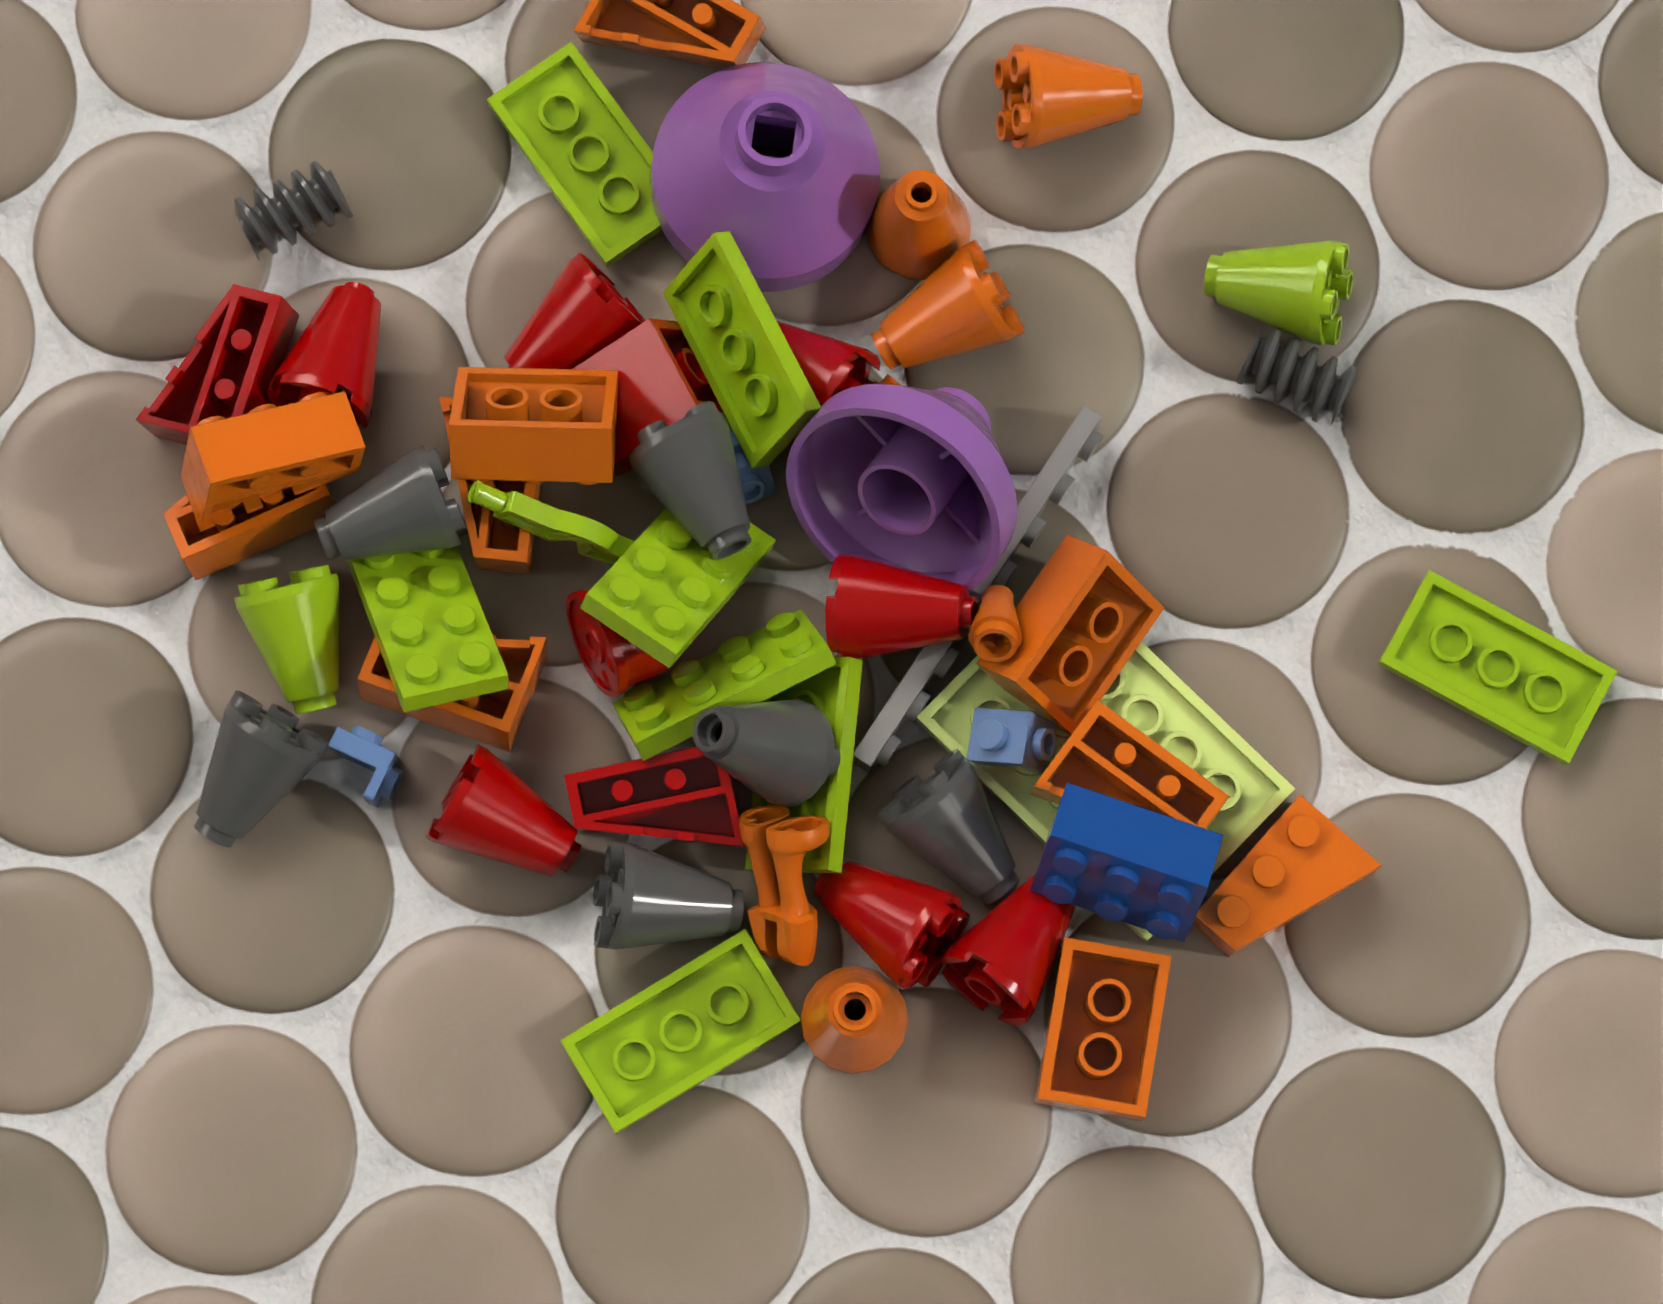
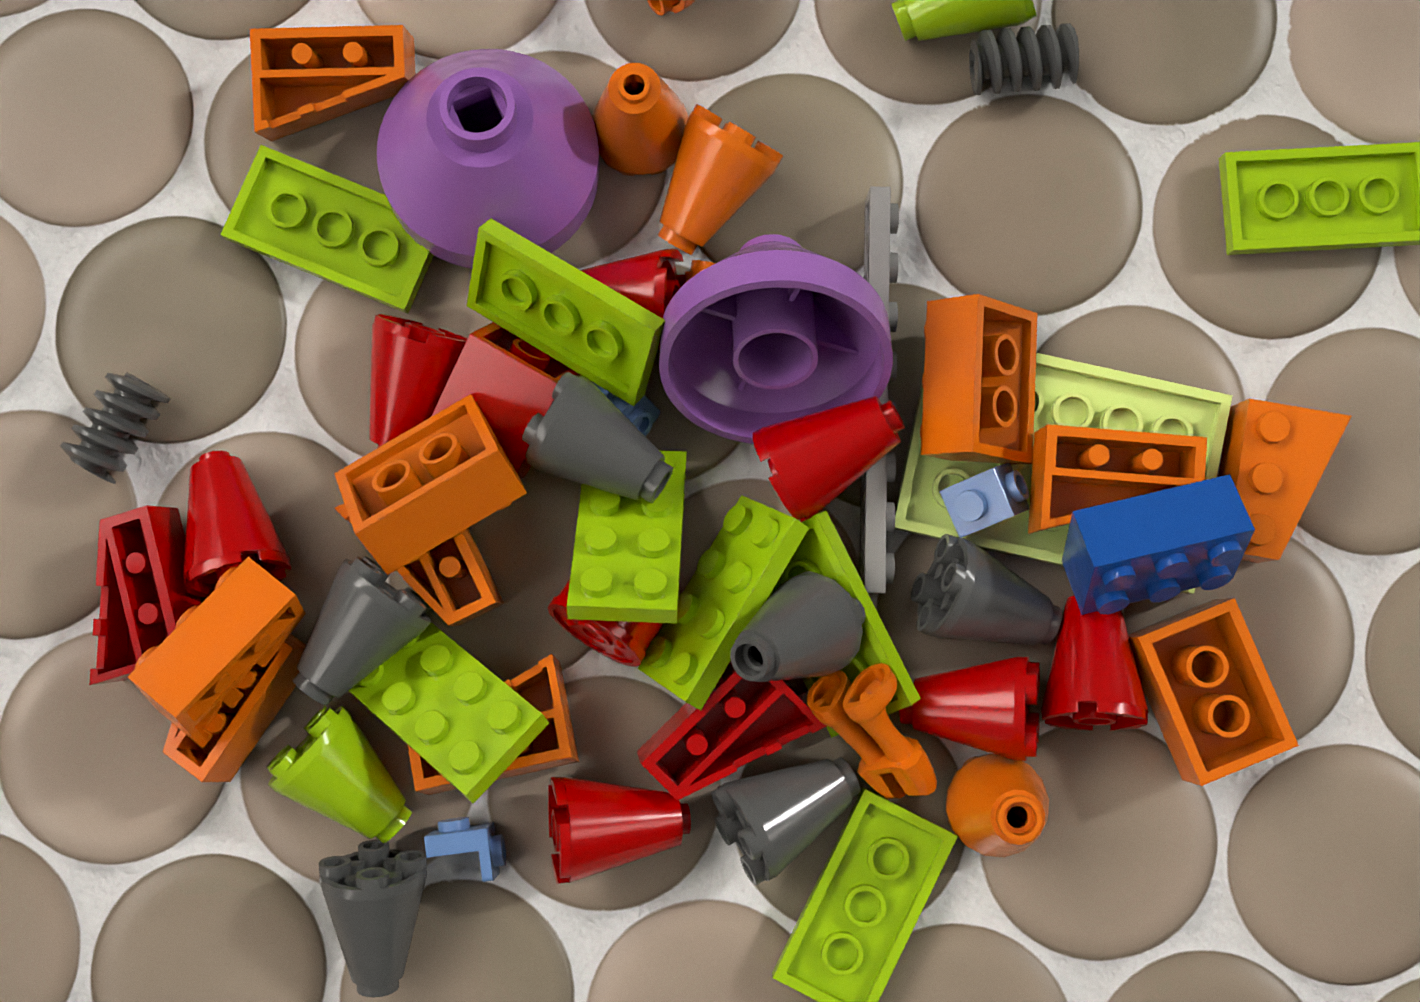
camera: 30 degrees left, 5 degrees up
(552, 524) = (496, 557): lime piece -> none
(996, 627) = (924, 415): orange cone -> none

